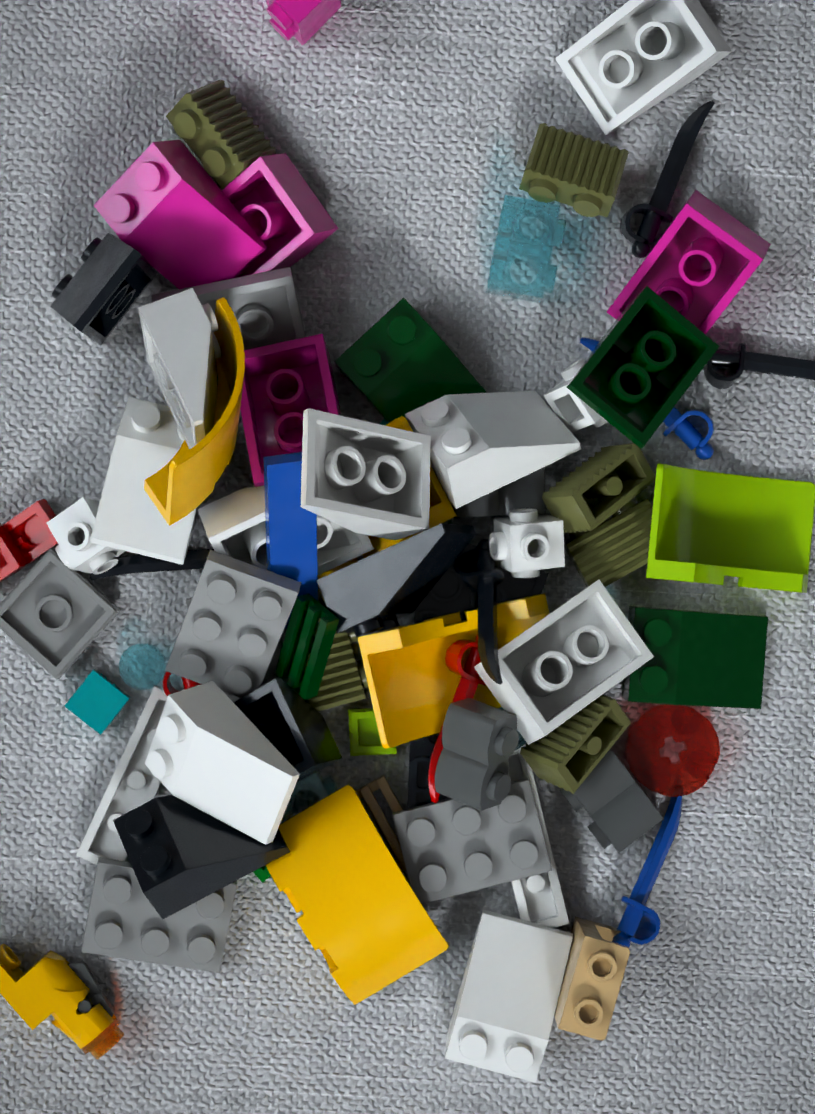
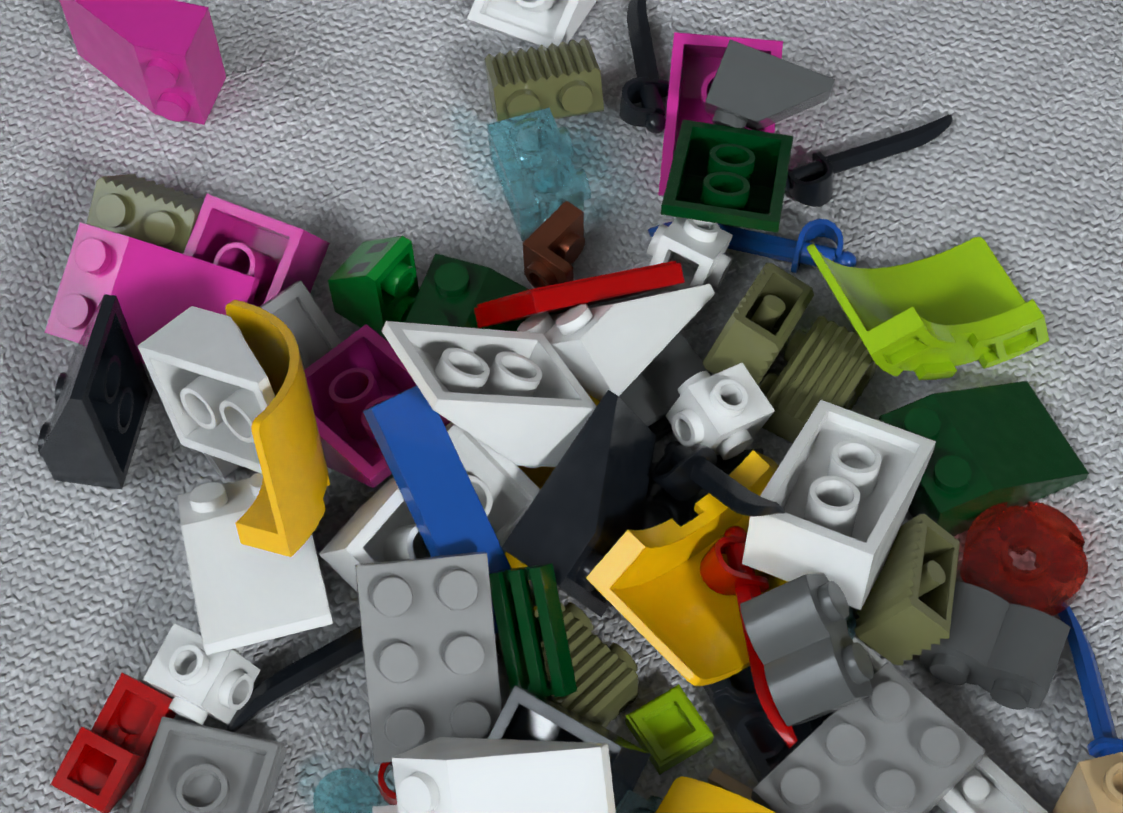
camera: 30 degrees left, 30 degrees down
(351, 292) = (376, 283): none -> green slope
(482, 399) = (577, 292): none -> red tile
(503, 322) = (554, 247): none -> copper bracket
(720, 295) = (762, 89): none -> dark grey slope

